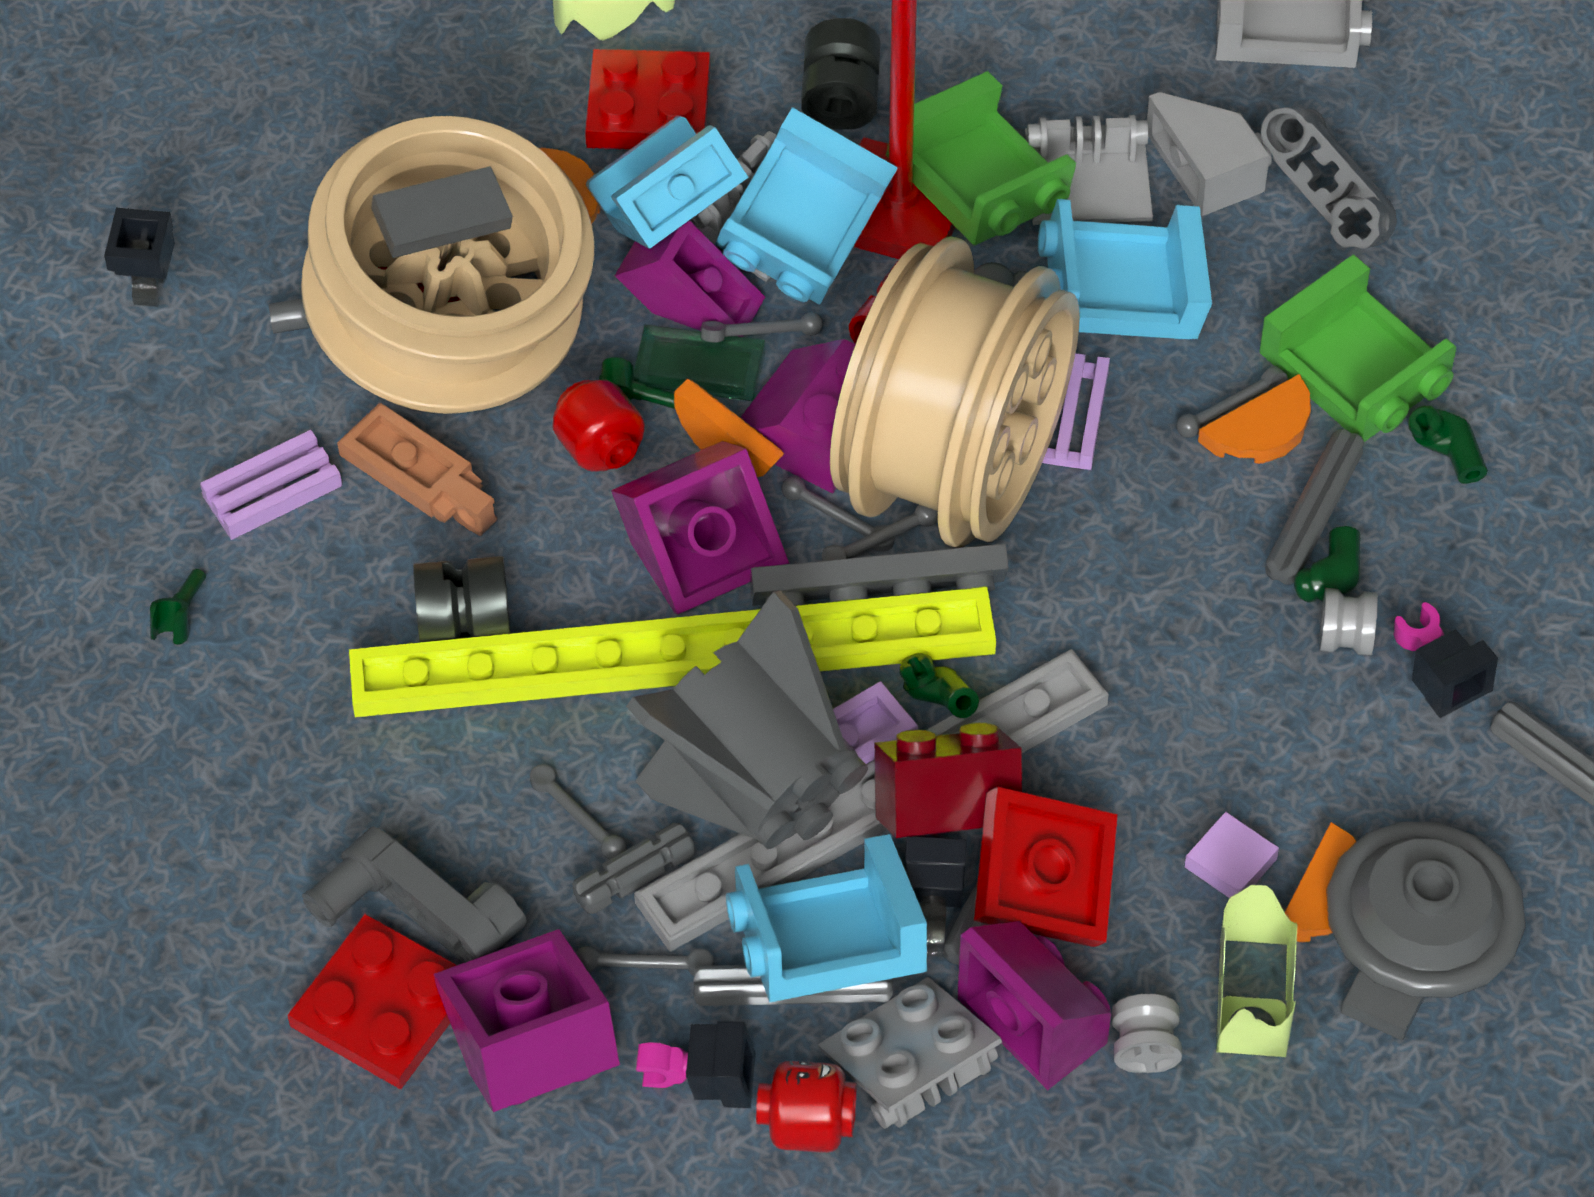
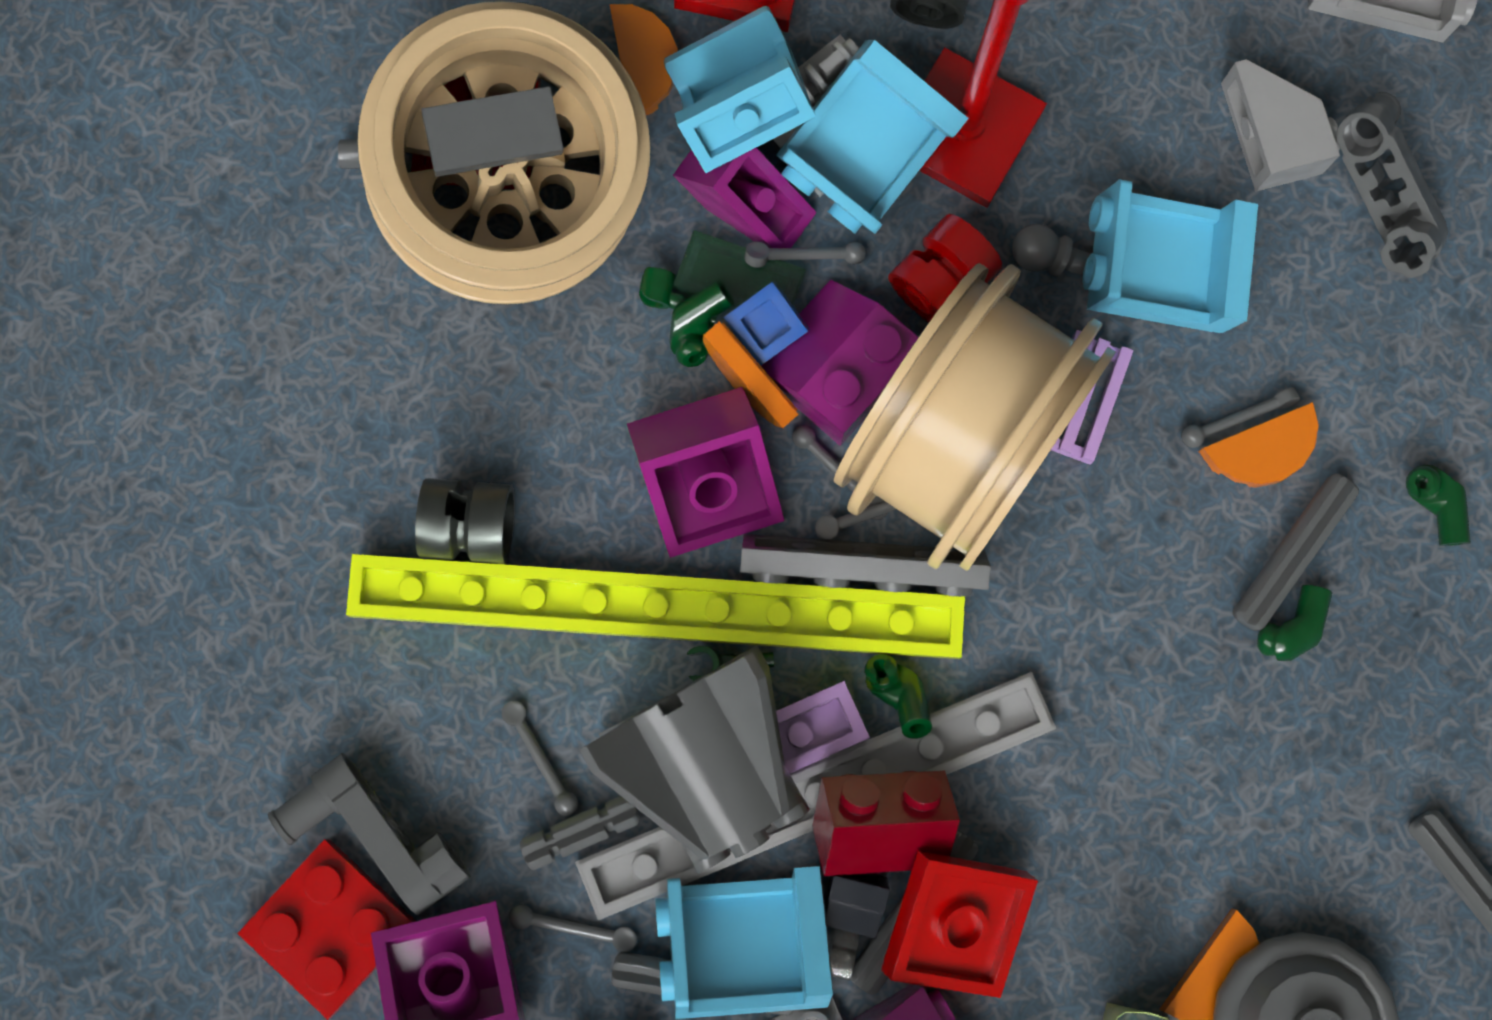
camera: 10 degrees right, 25 degrees up
(141, 248) = (215, 71): black piece -> none
(173, 613) = (199, 472): dark green hand -> none
(265, 476) = (306, 321): lavender tile -> none
(418, 469) = (449, 354): nougat hinge -> none
(598, 425) = (628, 344): red head -> none
(657, 400) = (691, 322): none -> dark green arm
(737, 379) = (766, 323): none -> blue plate
(979, 165) = (1054, 112): bright green panel -> none
(1109, 169) = (1156, 127): light grey hinge -> none
(1231, 856) = (1135, 924): lavender tile -> none
(1348, 622) = (1301, 695): light grey wheel -> none
(1355, 352) = (1374, 391): bright green panel -> none
(1445, 665) = (1385, 763): black piece -> none

